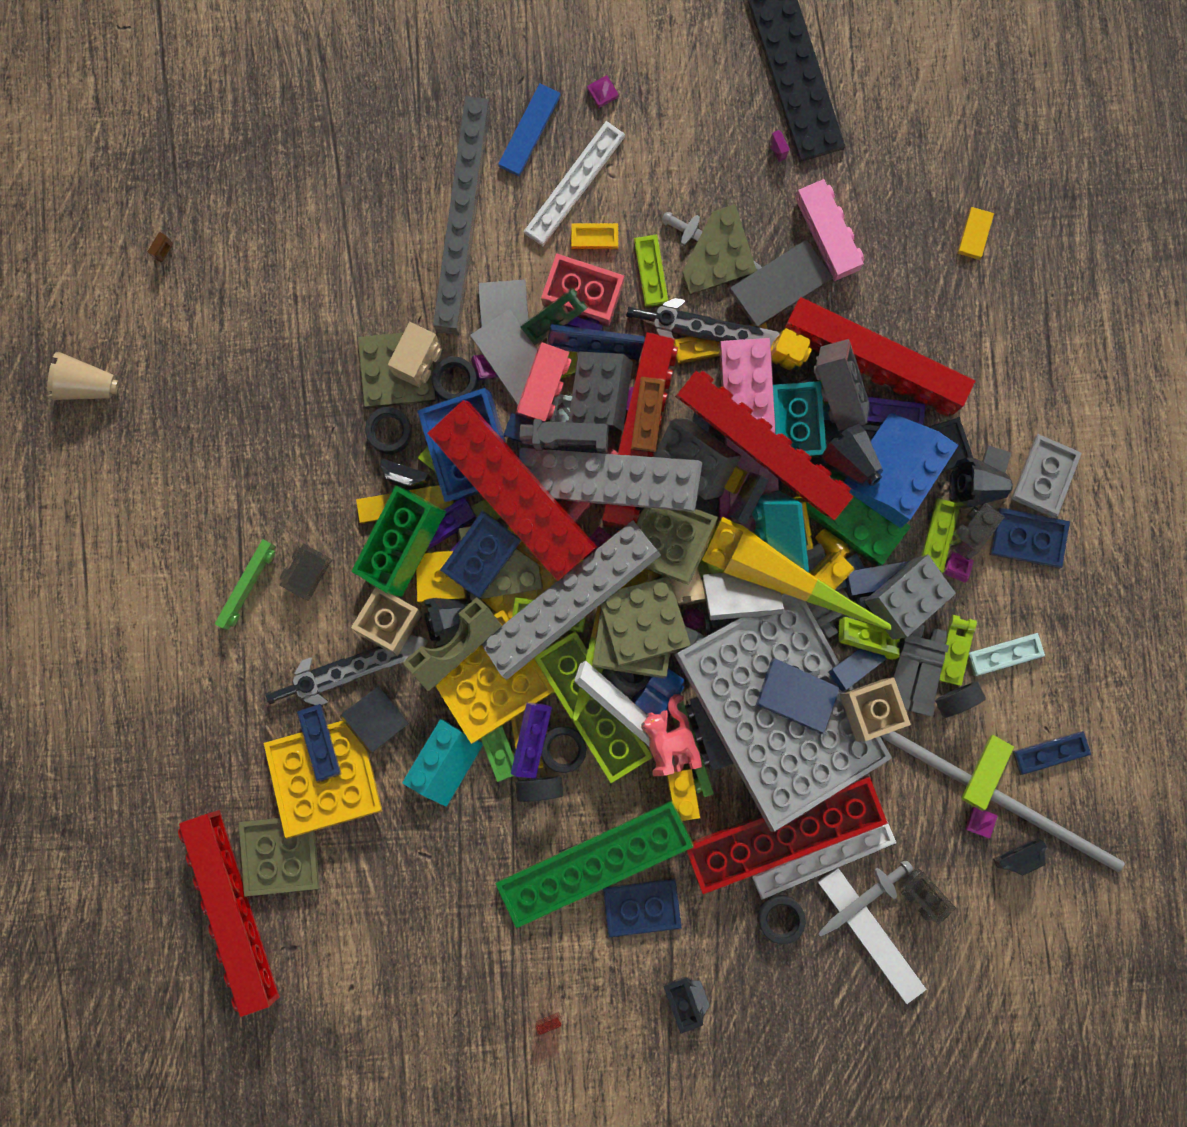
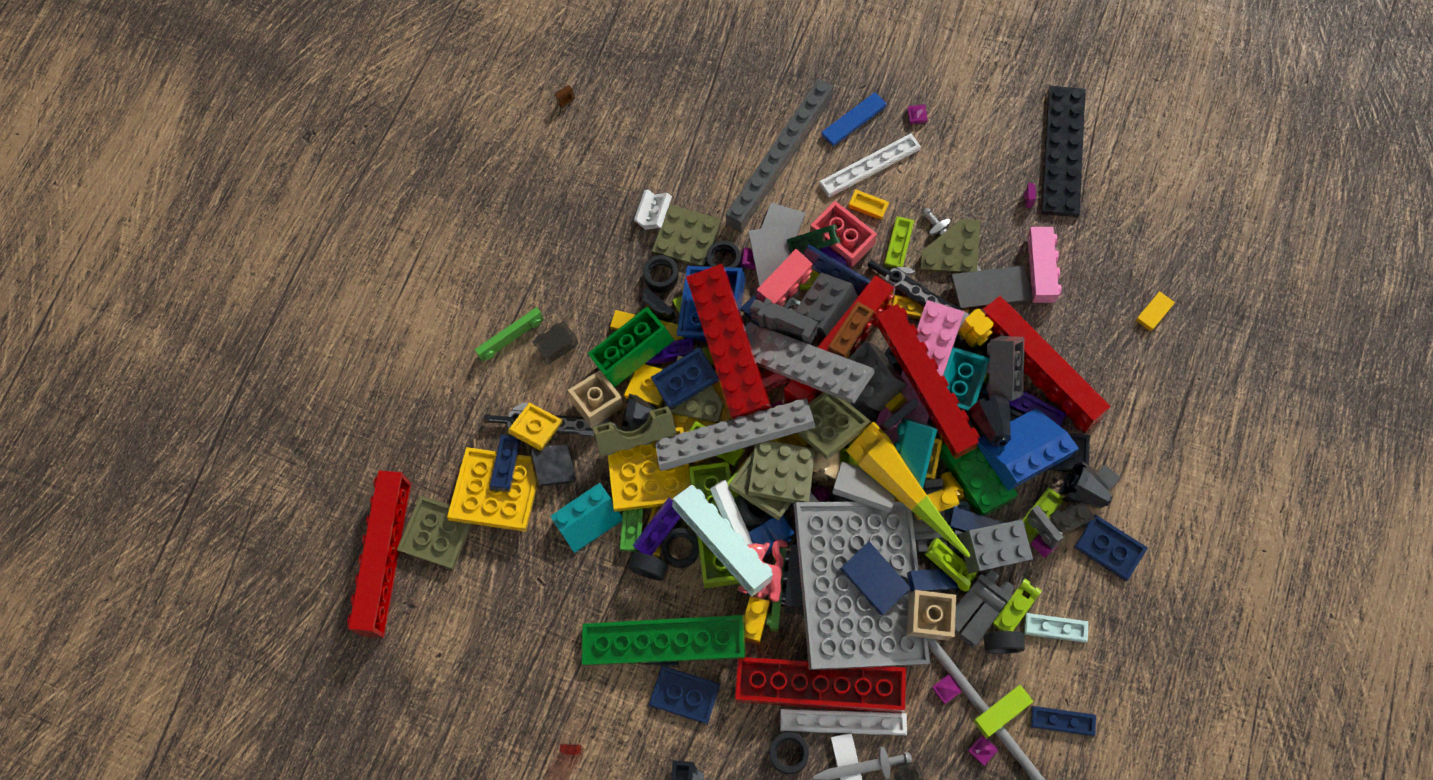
camera: 30 degrees right, 15 degrees down
(78, 380) = (466, 155): tan cone -> none
(332, 685) = (535, 426): none -> yellow plate
(341, 353) = (652, 210): none -> white bracket
(415, 355) = (703, 226): tan brick -> none
(614, 733) = (722, 540): none -> light aqua brick
(917, 774) = (946, 689): none -> magenta tile
(960, 554) = (1044, 526): none -> dark grey plate
(1046, 476) = (1142, 506): light grey tile -> none

